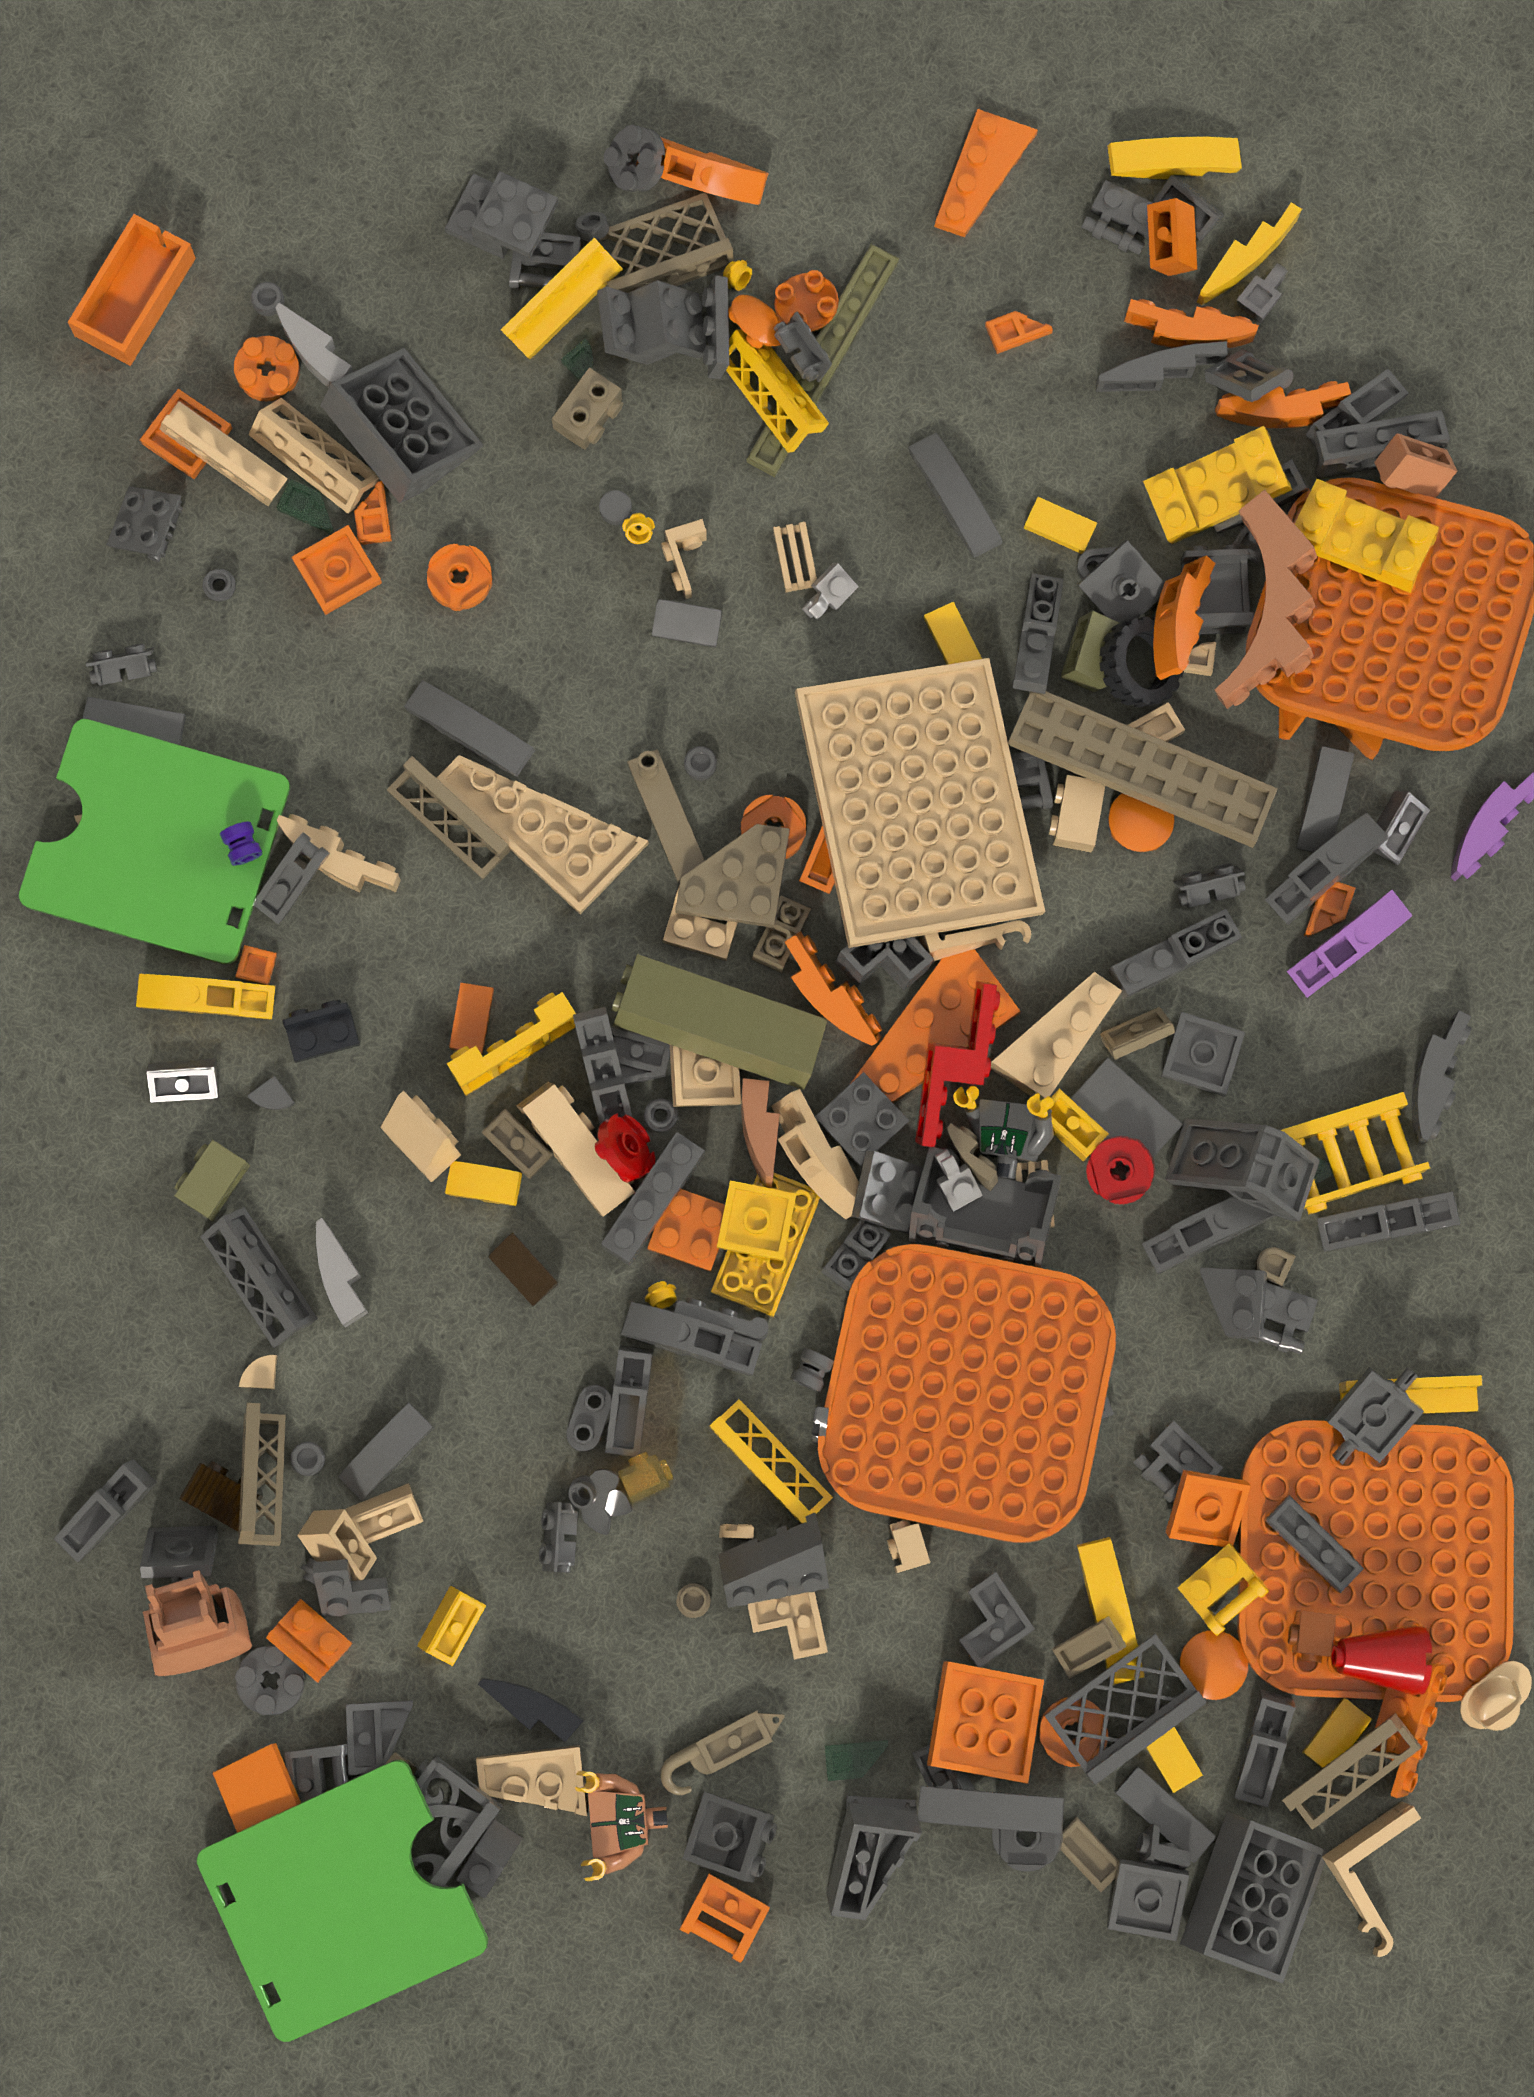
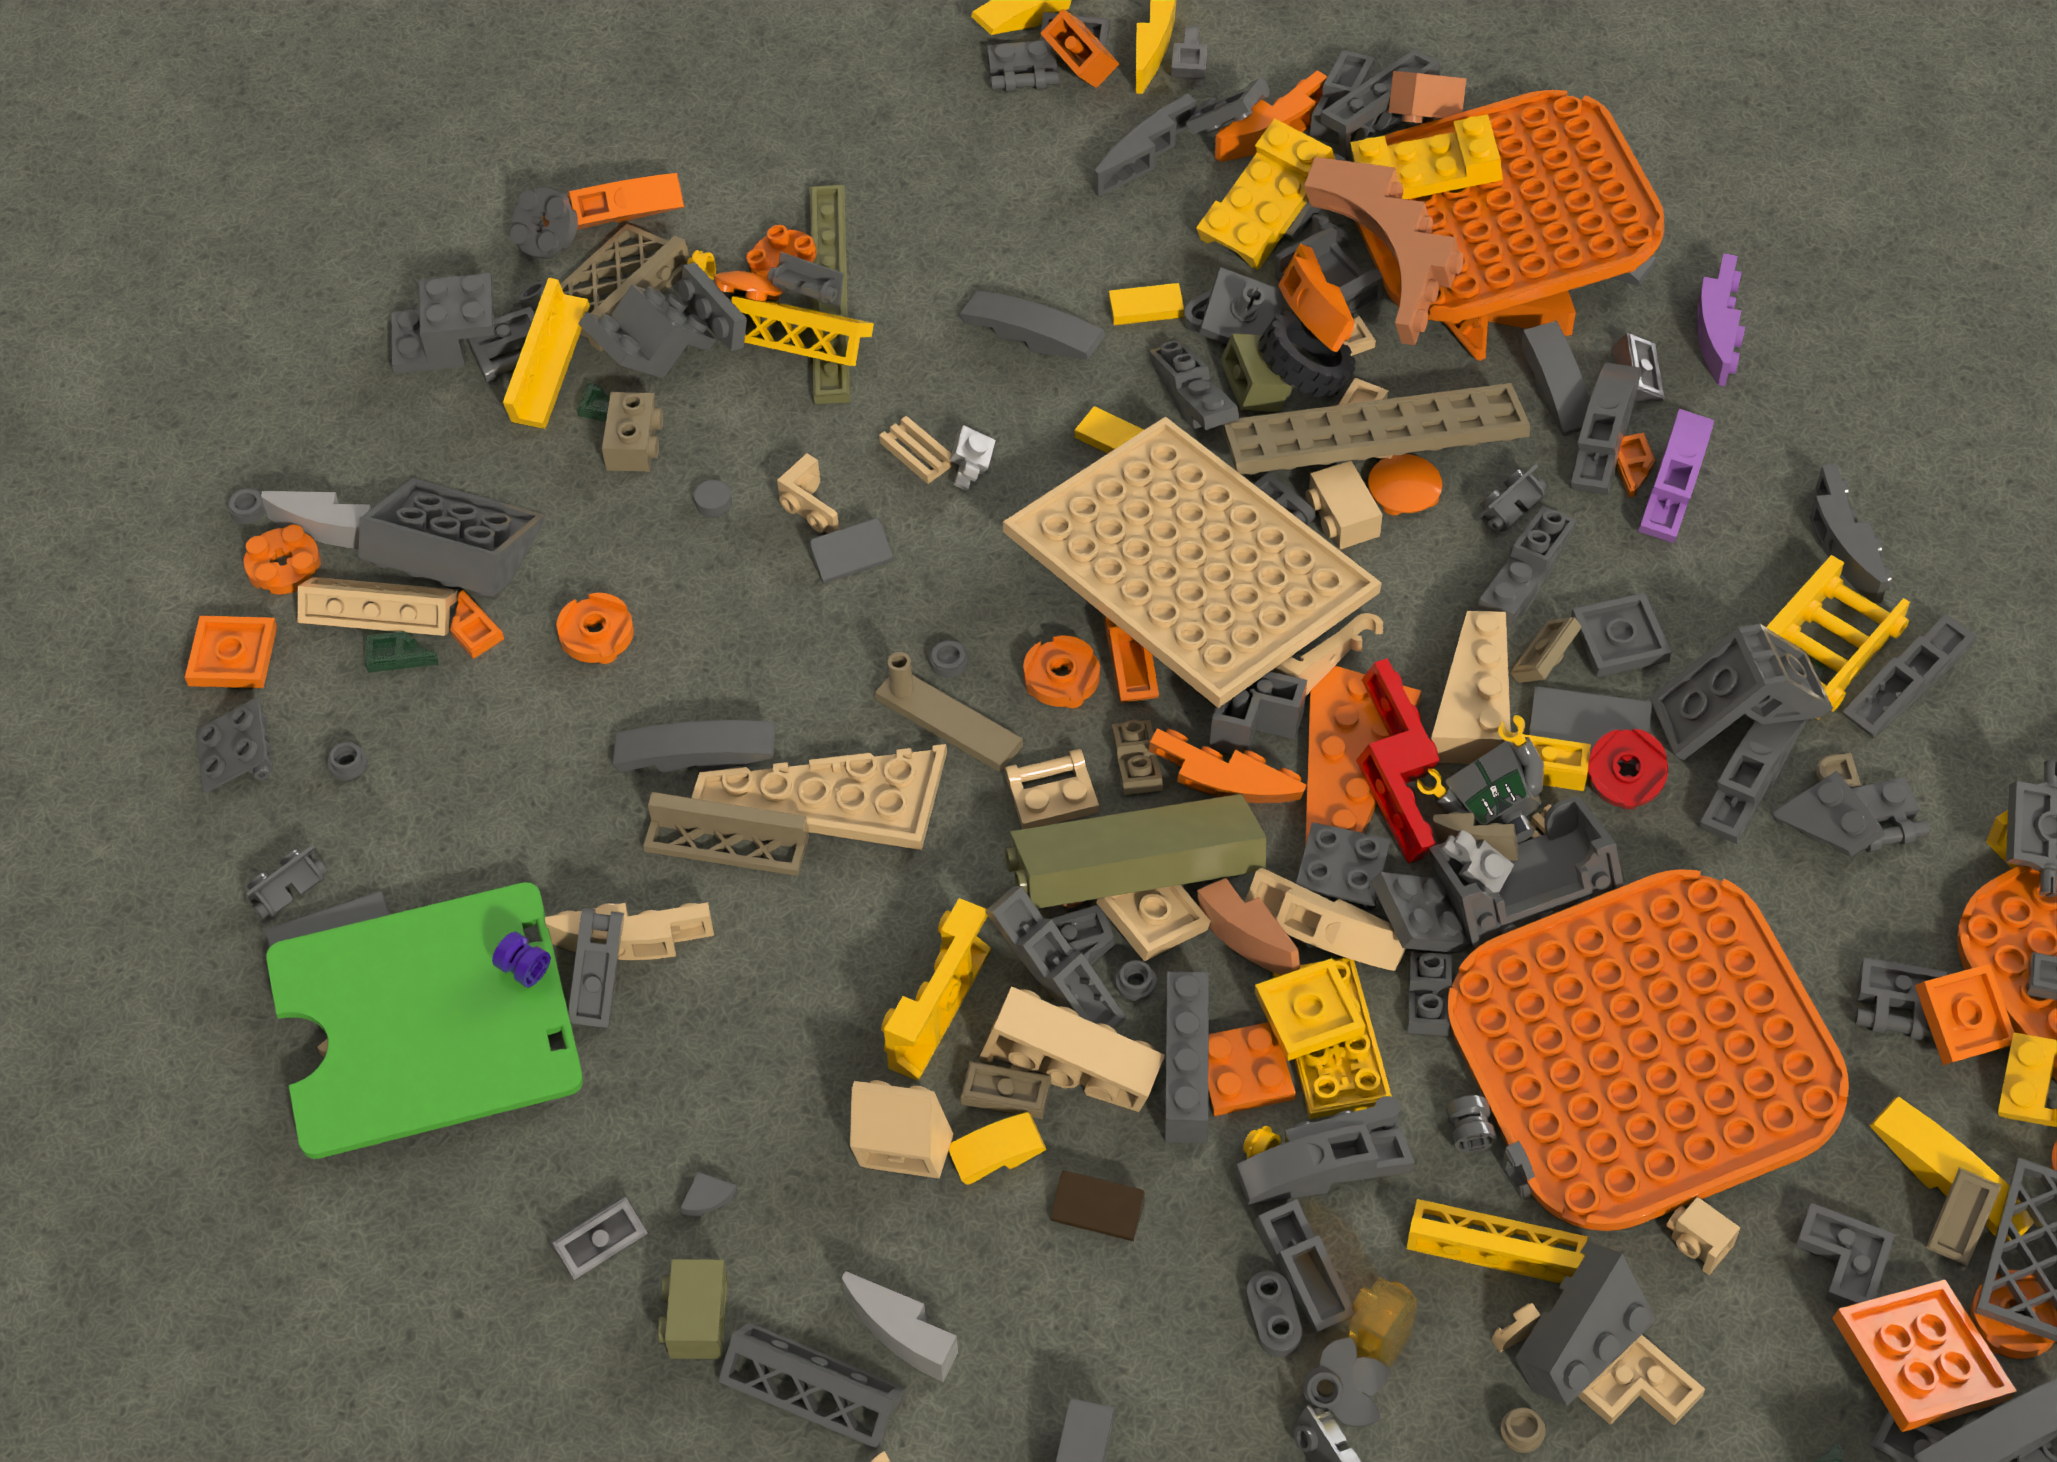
camera: 25 degrees left, 25 degrees down
(132, 290) = (100, 557): orange piece -> none
(205, 996) = (568, 1131): yellow slope -> none
(223, 453) = (281, 643): tan fence -> none
(256, 965) = (608, 1081): orange tile -> none
(321, 1031) = (720, 1101): black bracket -> none
(336, 570) = (464, 685): orange plate -> none
(471, 1017) = (870, 998): orange tile -> none
(625, 1147) = (1117, 1011): red plate -> none
(638, 535) = (756, 502): yellow plate -> none
(739, 880) = (1062, 725): dark tan plate -> none
(985, 161) = (869, 89): orange wing -> none
(1014, 330) = (990, 187): orange tile -> none
(1175, 329) = (1128, 111): orange slope -> none

